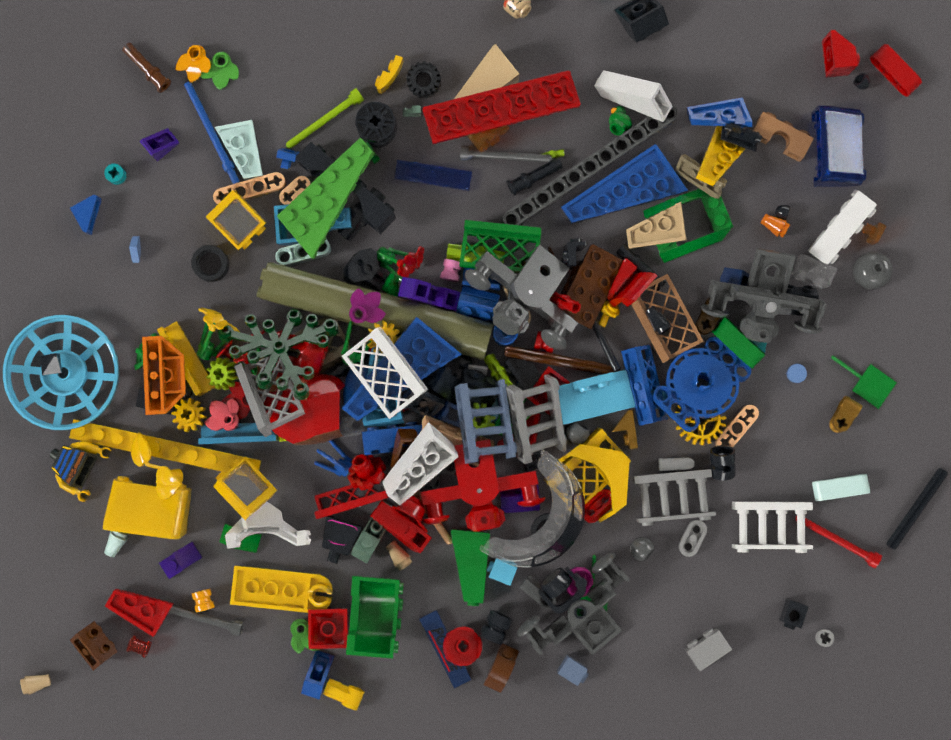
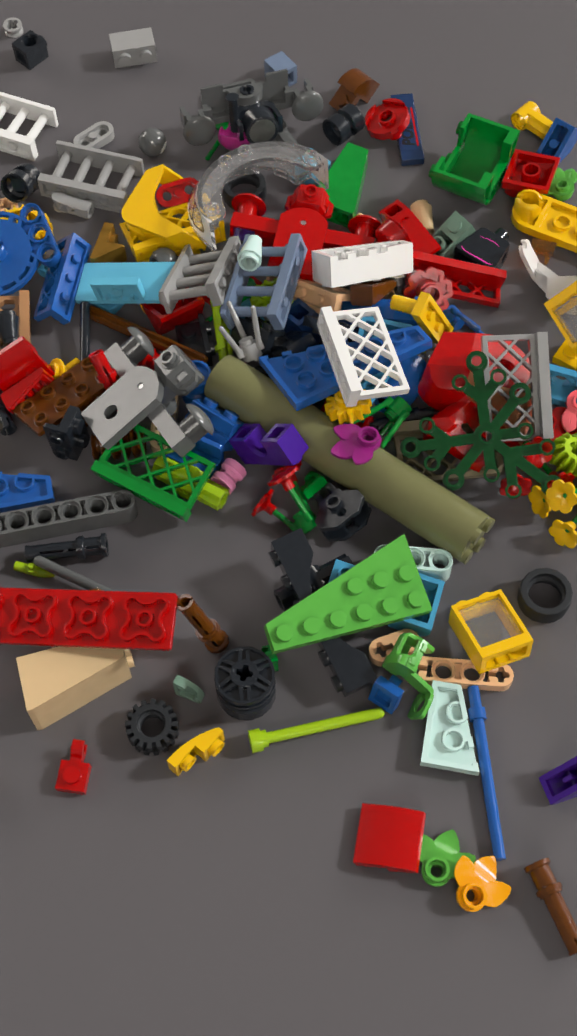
camera: 155 degrees left, 25 degrees down
(254, 68) = (389, 838): none -> red slope
(276, 168) = (406, 666): none -> bright green piece
(297, 559) = (543, 248): none -> clear orange tile
(356, 437) = (425, 313): none -> yellow piece
(415, 147) = (206, 628): none -> reddish brown pin
(433, 175) = (228, 615): clear blue tile -> none
(458, 35) = (74, 774): none -> red plate
(474, 365) = (249, 348): none -> light grey plant
(502, 437) = (251, 254): none -> light aqua cone

